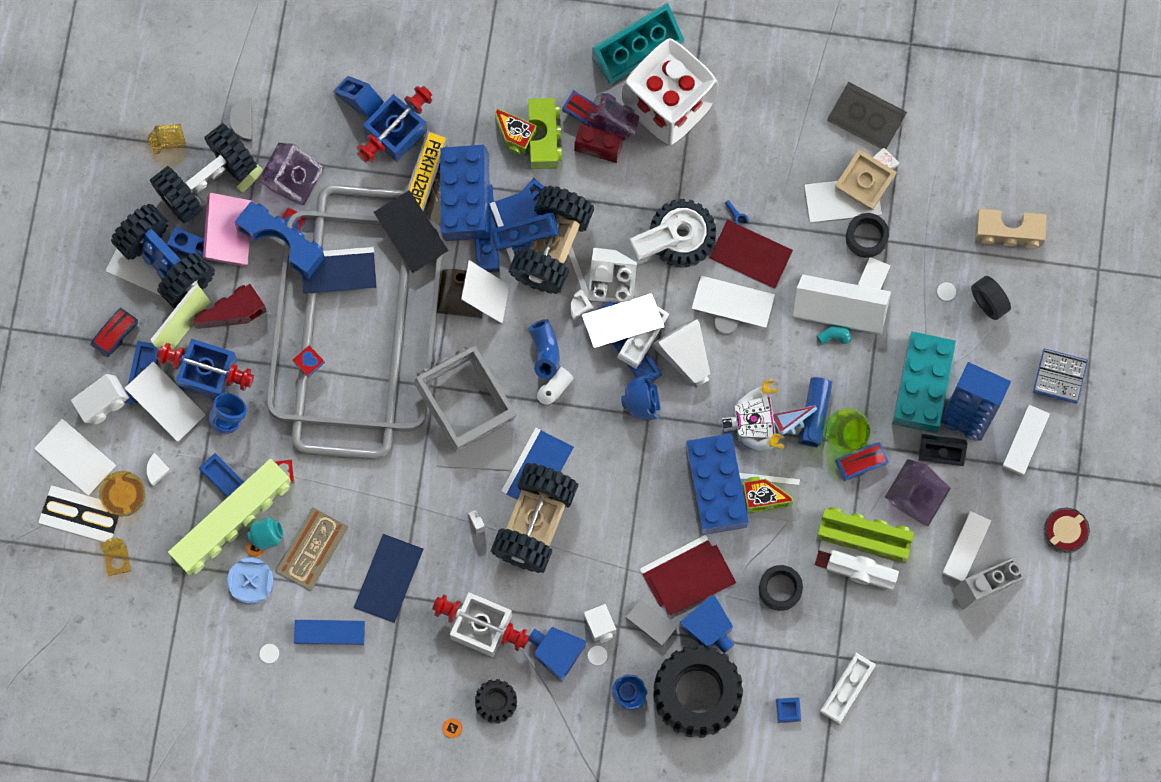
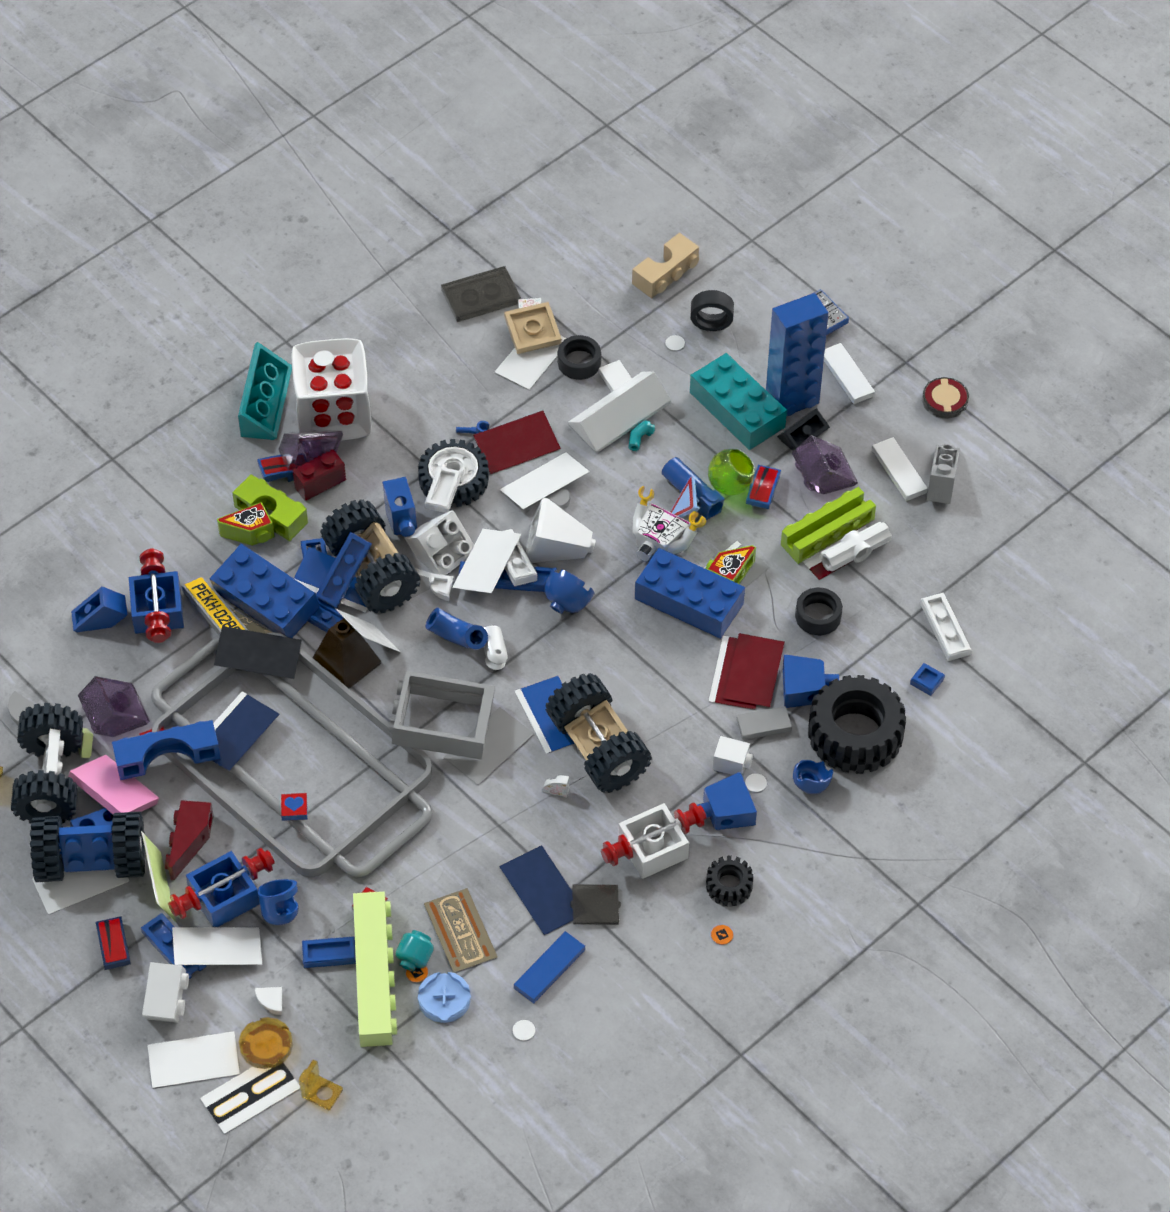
camera: 50 degrees left, 20 degrees down
(404, 623) = (595, 904): none -> clear smoke piece
(611, 225) = (401, 518): none -> blue torso

